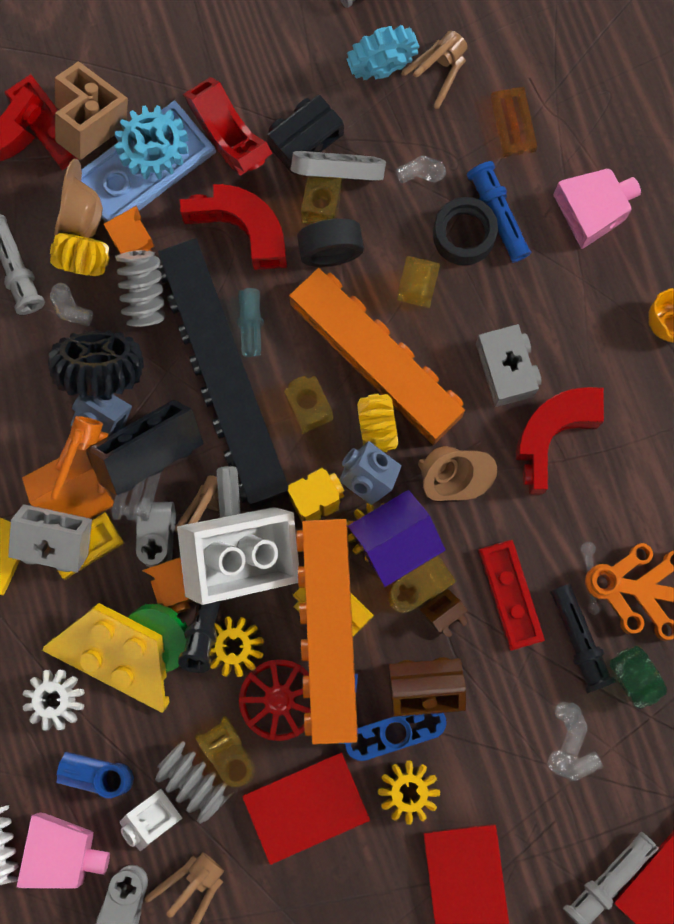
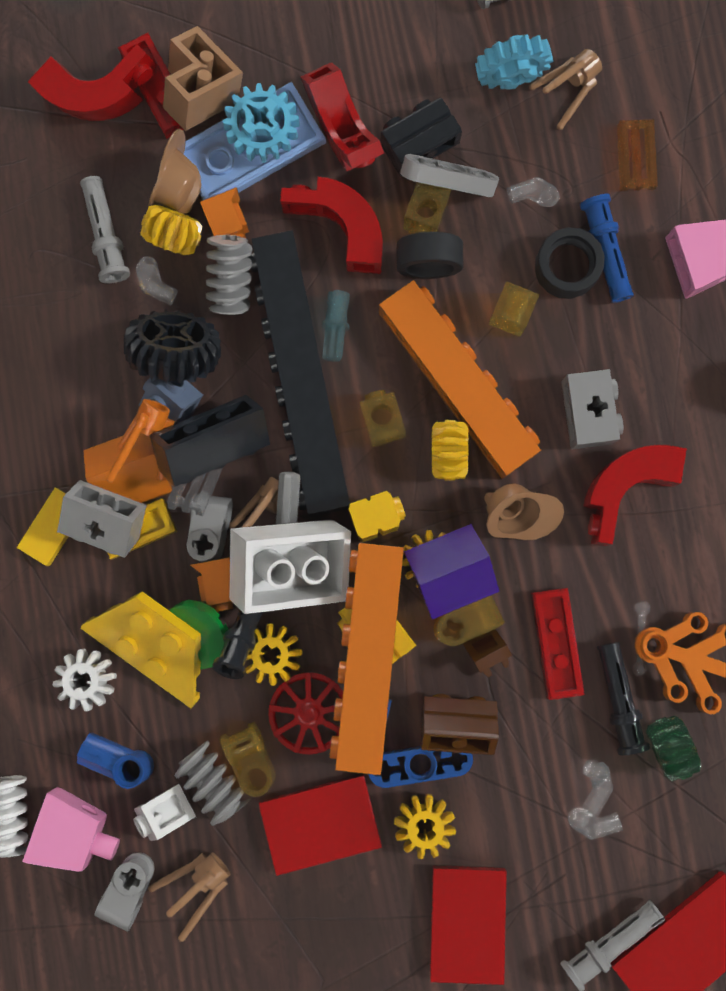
camera: 10 degrees right, 5 degrees up
(369, 472) = (434, 501): sand blue brick -> none

